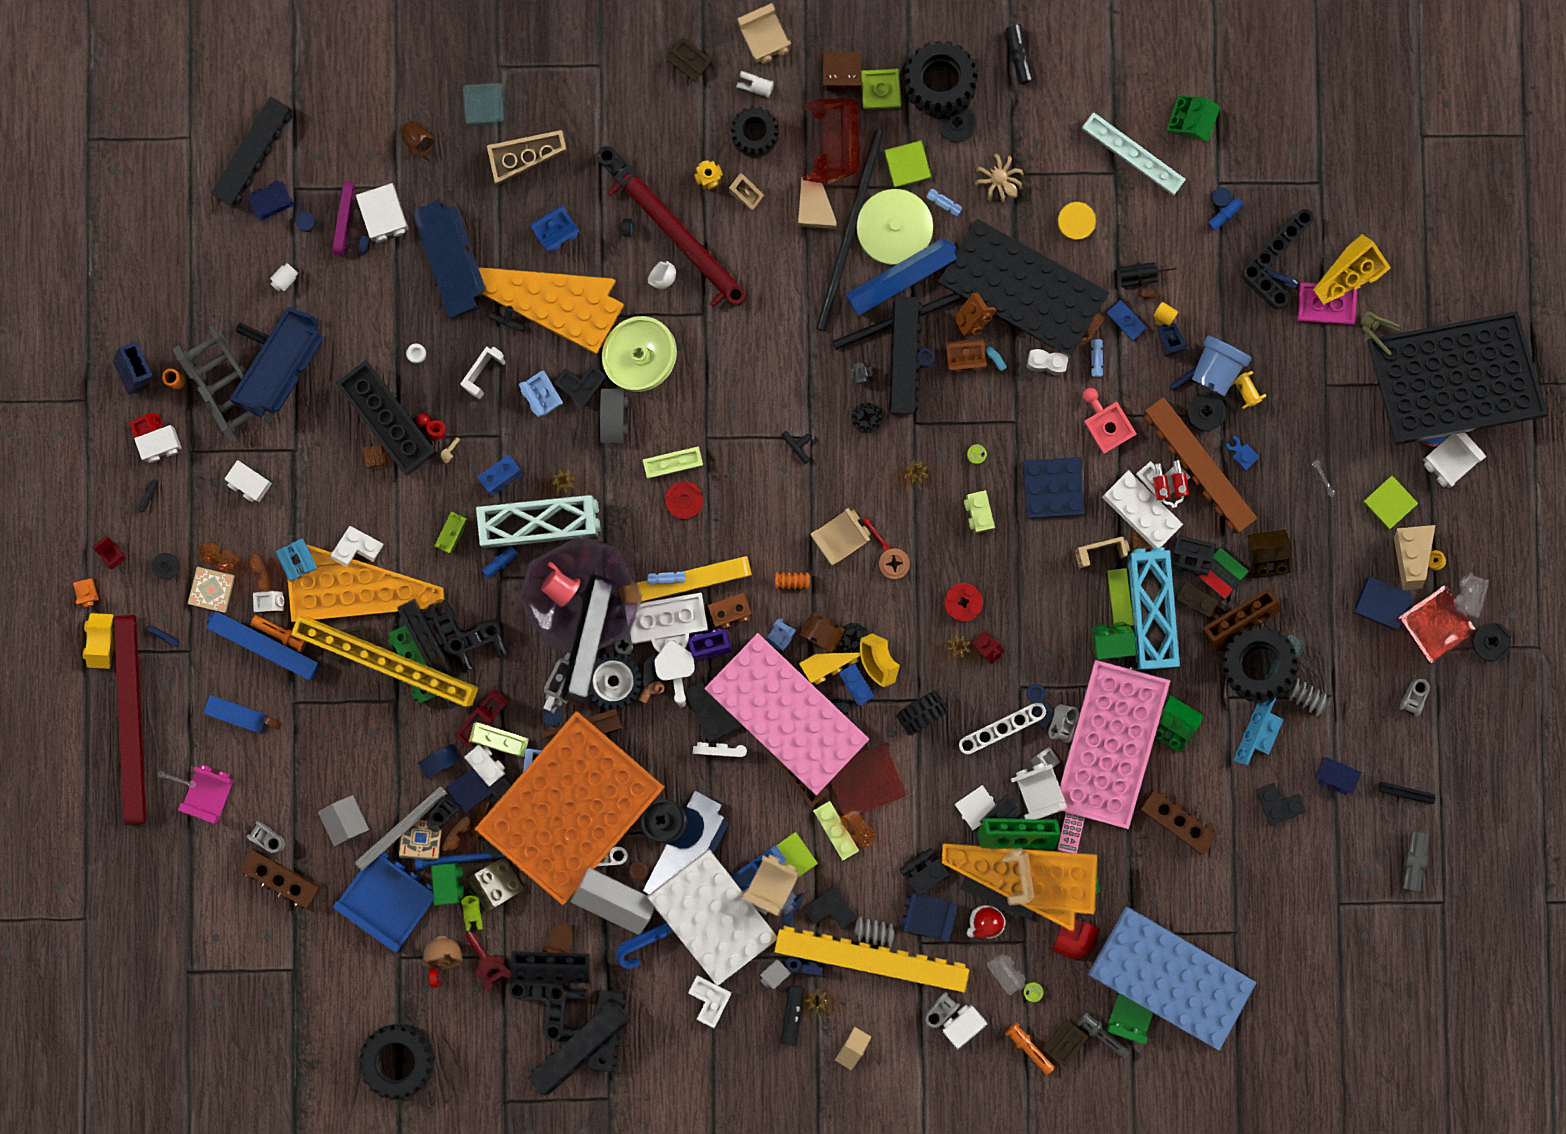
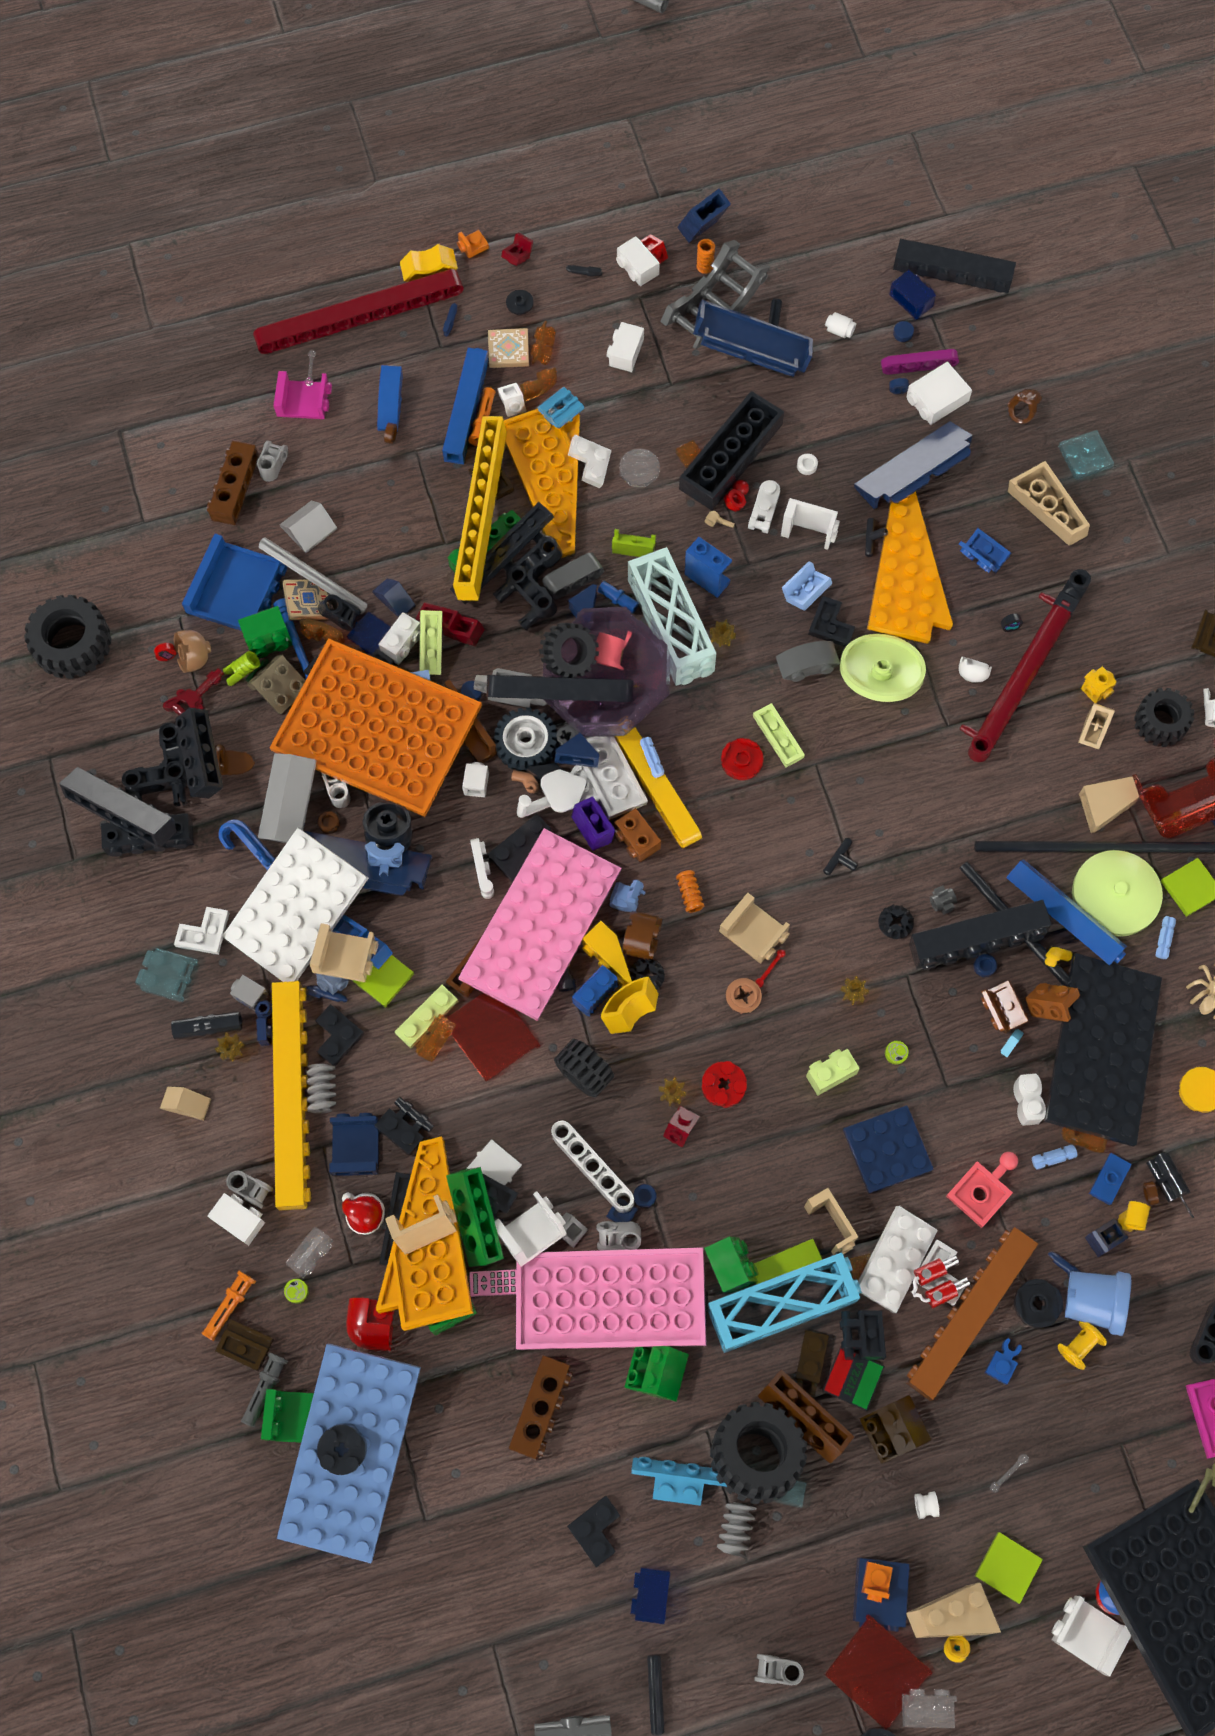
camera: 75 degrees right, 15 degrees down
(374, 505) = (639, 467): none -> clear tile
(447, 404) = (764, 506): none -> white plate
(467, 596) = (573, 575): none -> dark grey beam
(501, 595) = (583, 600): none -> dark blue slope
(545, 628) = (585, 650): none -> black tyre
(638, 734) = (475, 779): none -> white brick
(644, 639) = (577, 752): none -> dark blue slope
(694, 831) = (384, 858): none -> medium blue piece
(736, 1041) = (165, 974): none -> clear light blue plate
(934, 297) = (1056, 954): none -> yellow arm
(1177, 992) = (330, 1458): none -> black plate
(1330, 548) = (926, 1505): none -> white wheel
(1376, 605) = (876, 1581): none -> orange bracket

